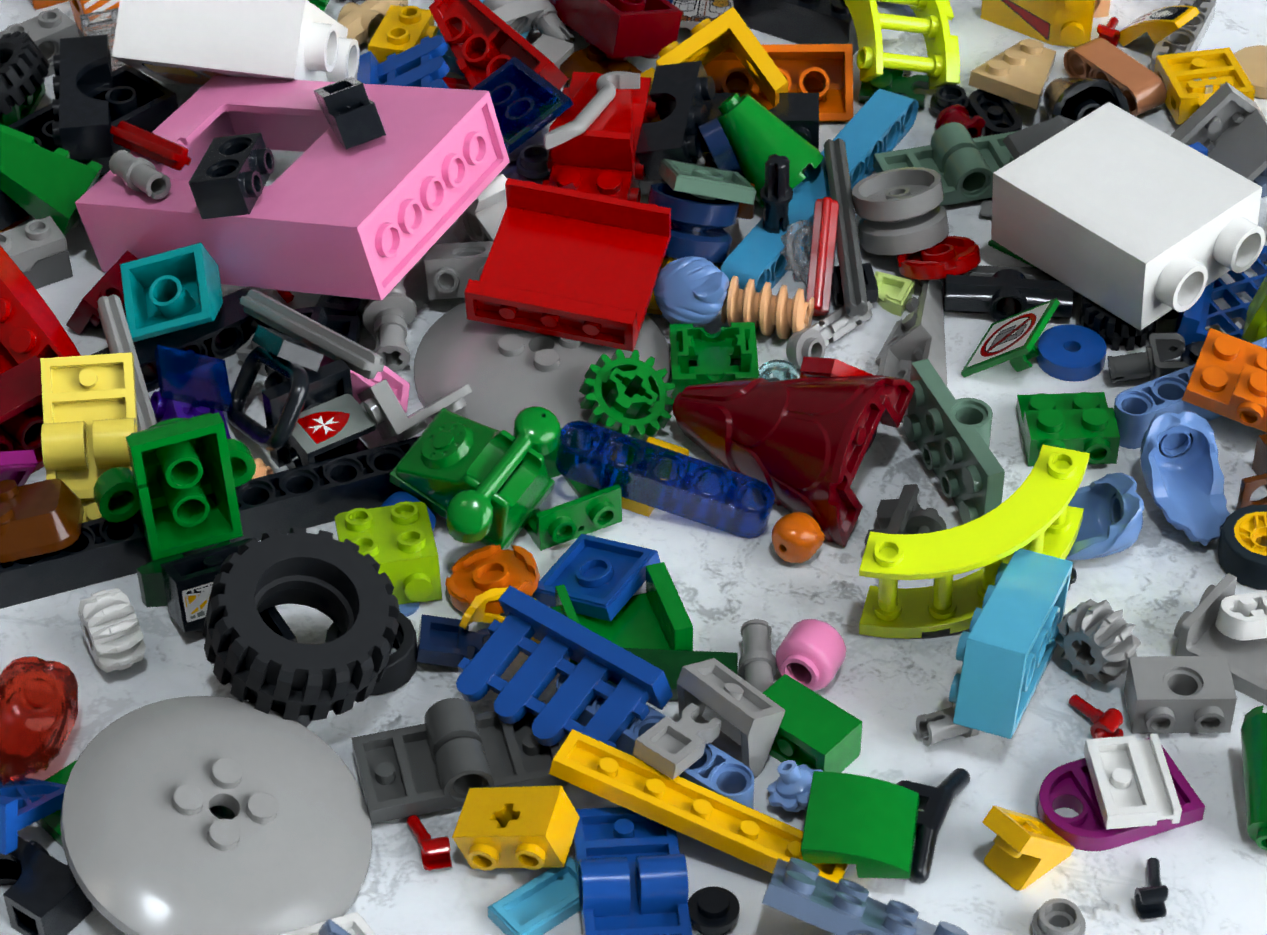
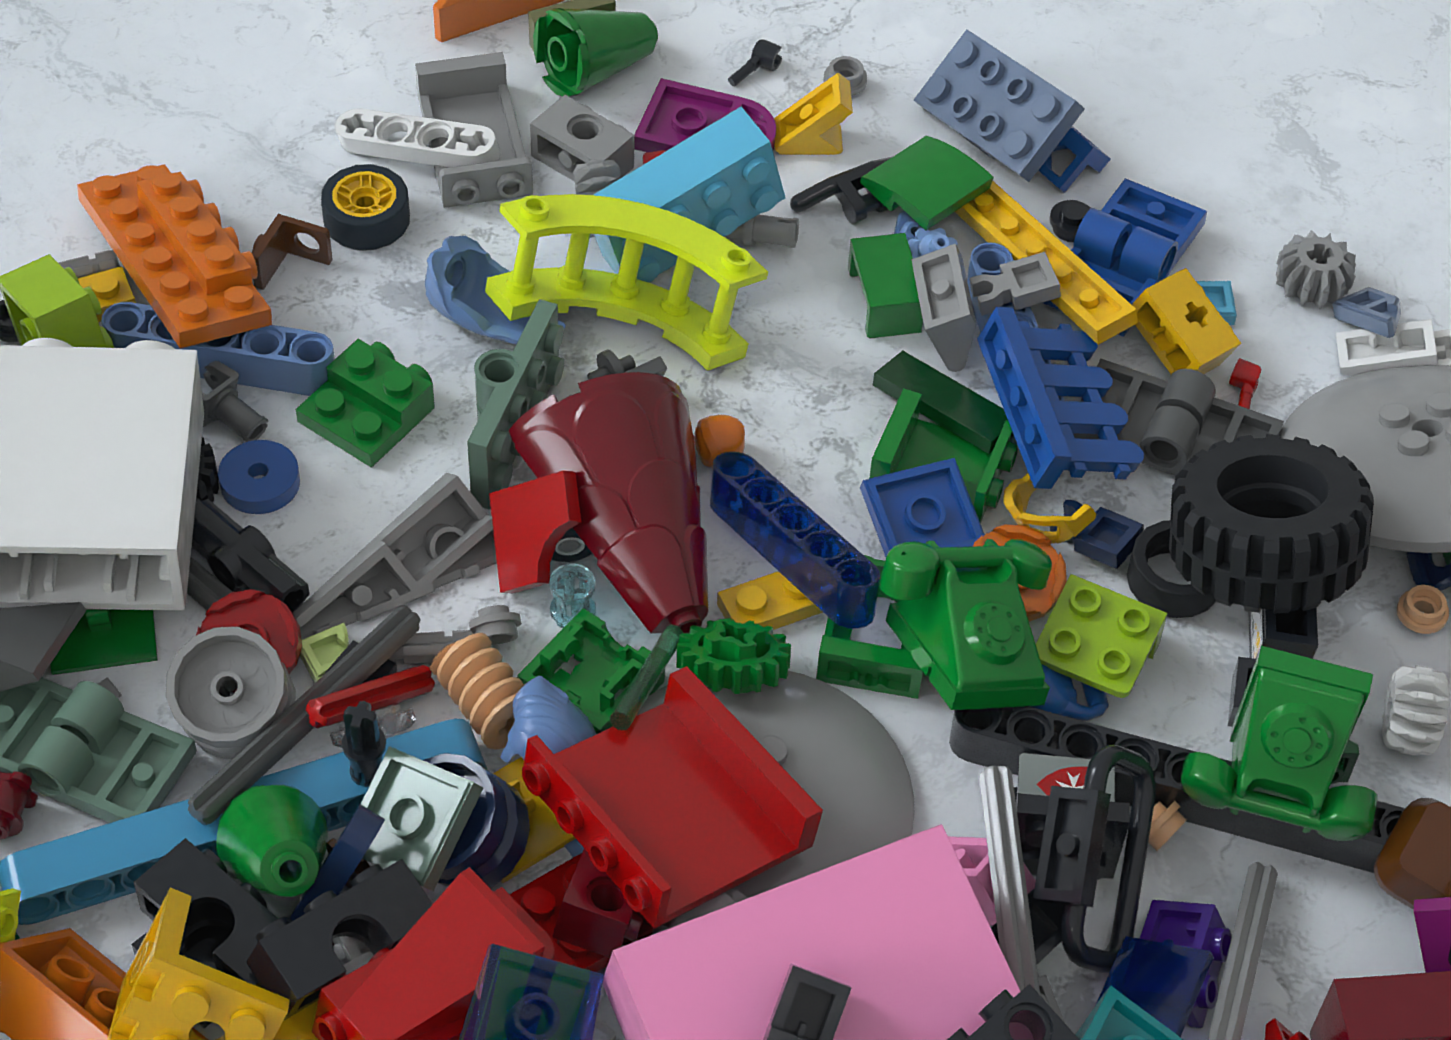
camera: 145 degrees left, 10 degrees up
(87, 419) = (1331, 914): light yellow plate -> none
(390, 417) = (941, 759): light grey bracket -> none
(606, 88) = (461, 939): light grey piece -> none
(662, 337) = (646, 678): none -> clear green bar
(757, 662) = (864, 360): light grey pin -> none
(811, 653) = (821, 331): bright pink head -> none
(1011, 340) = (311, 496): piece -> none
(1131, 781) = (701, 98): white plate -> none
(1185, 474) = (355, 286): medium blue hair -> none

